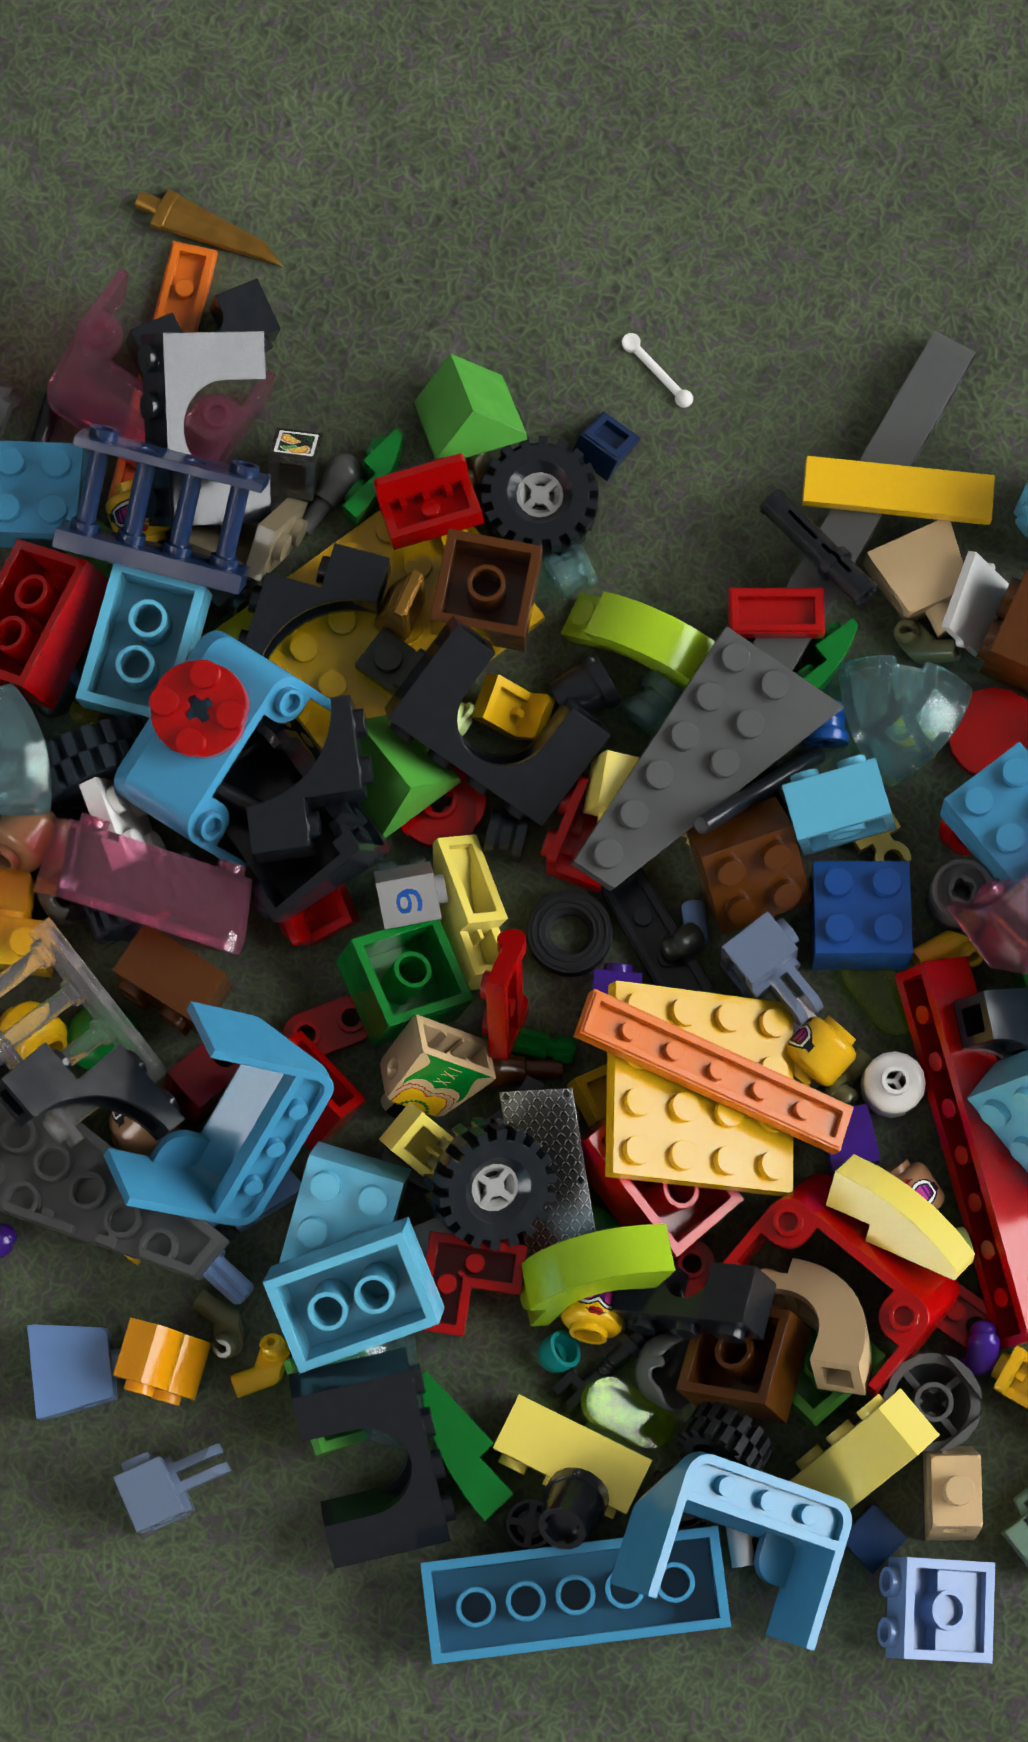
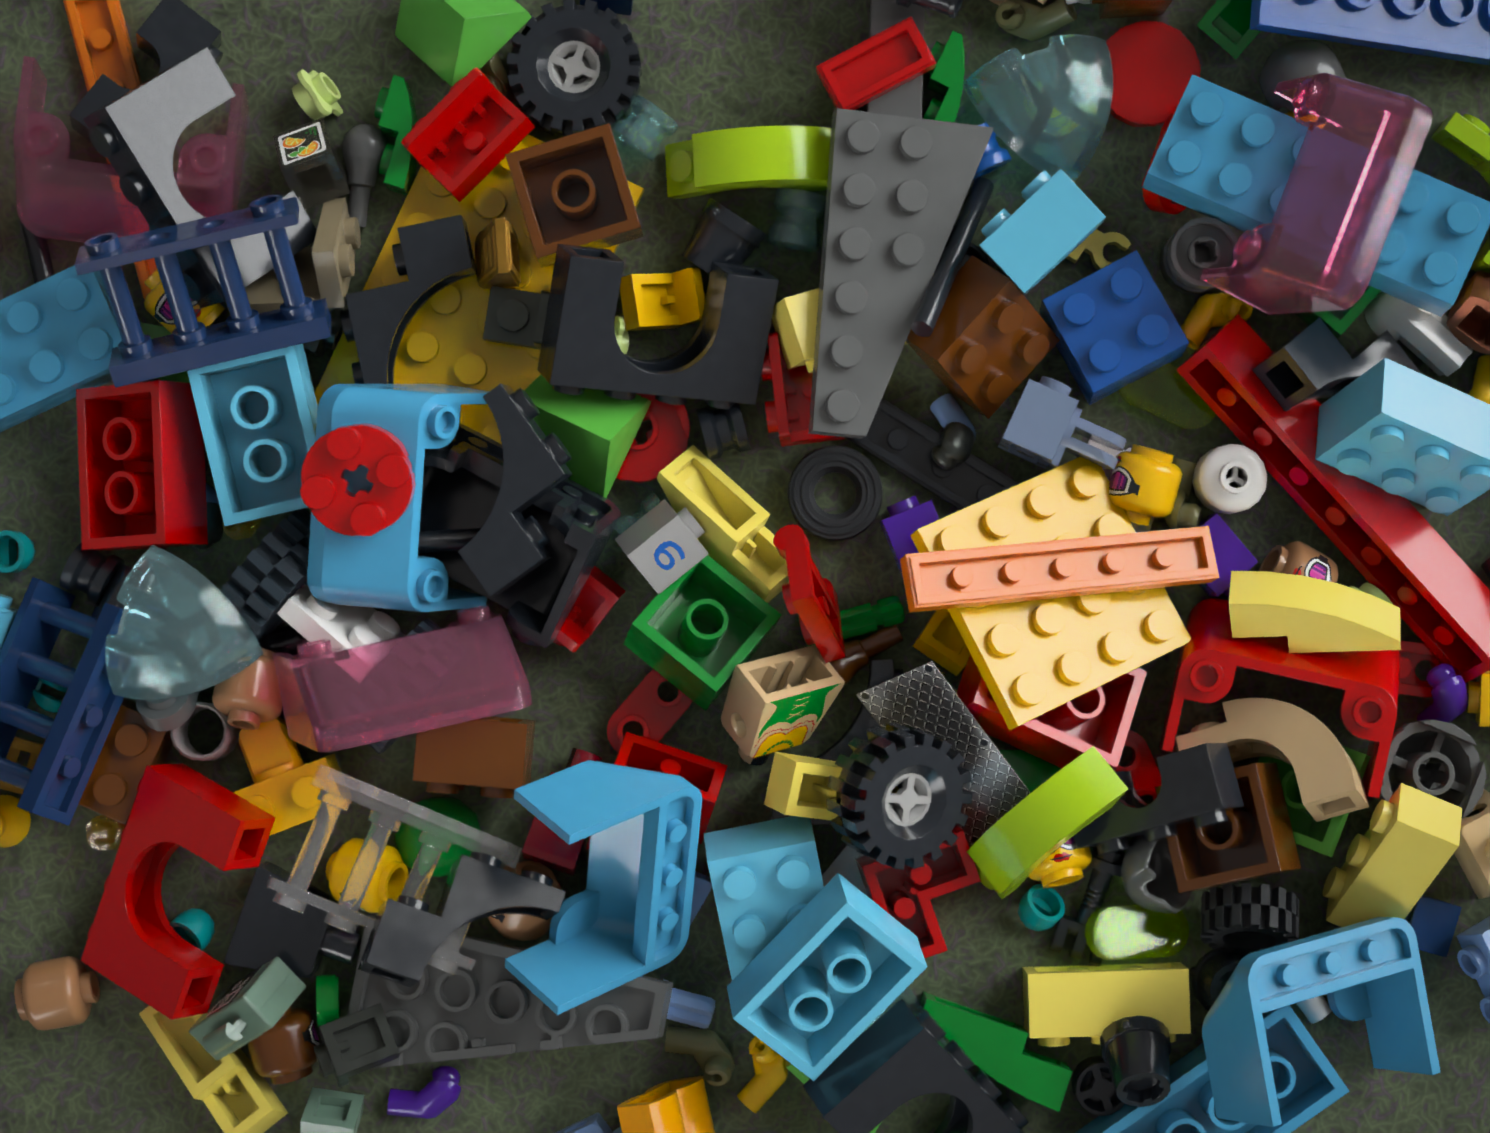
camera: 30 degrees left, 10 degrees up
(328, 414) = (317, 94): none -> yellowish green plate

